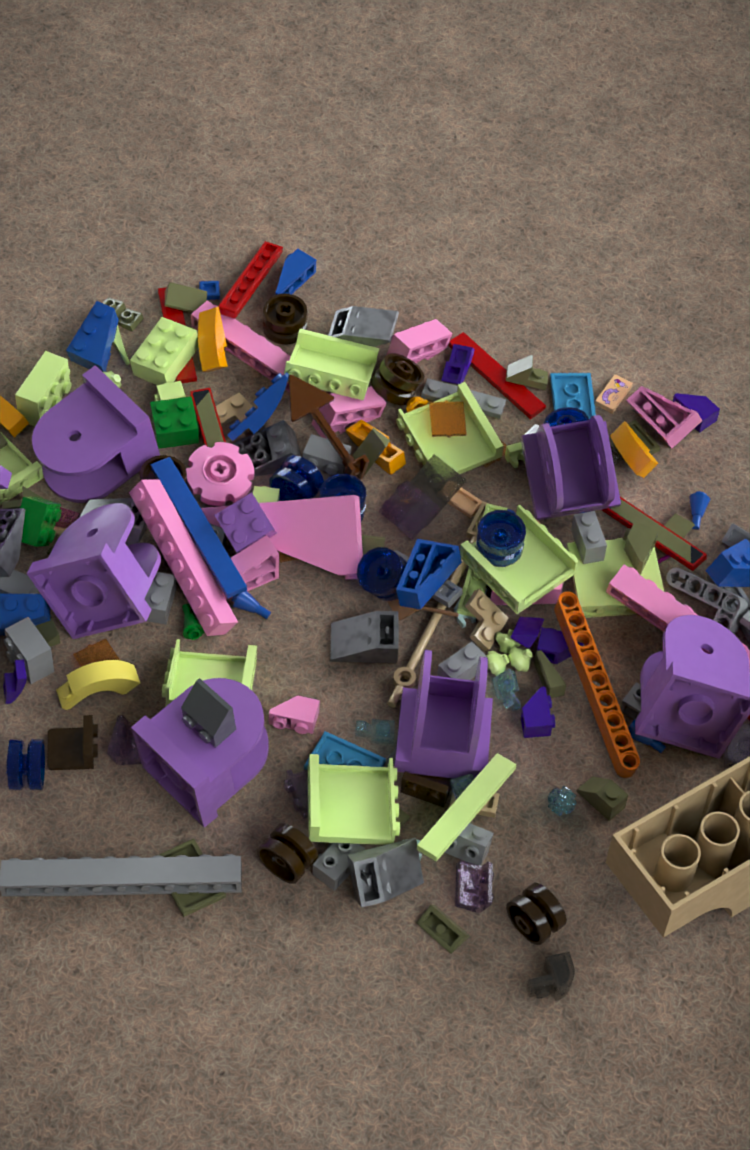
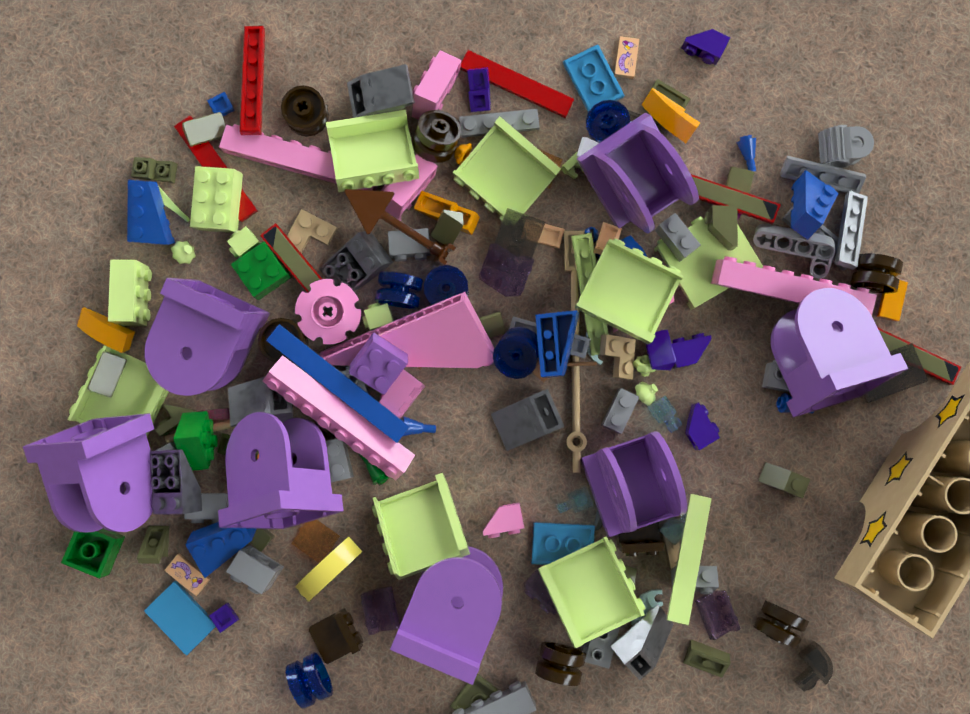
camera: 20 degrees left, 30 degrees up
(14, 682) = (258, 605): dark purple slope -> none
(208, 714) = (452, 613): dark grey slope -> none
(211, 340) = (251, 169): light orange slope -> none
(266, 401) = (335, 228): blue slope -> none
(295, 272) = (289, 48): blue slope -> none
(447, 419) = (498, 157): clear orange piece -> none
(501, 537) = (619, 276): clear blue wheel -> none
(520, 658) = (663, 379): yellowish green piece -> none
(523, 373) = (544, 73): olive slope -> none
(549, 676) = (697, 388): olive slope -> none
(561, 800) = (754, 502): clear light blue gear -> none
(595, 693) = (749, 385): orange beam -> none
(664, 416) = (683, 68): bright pink wedge -> none

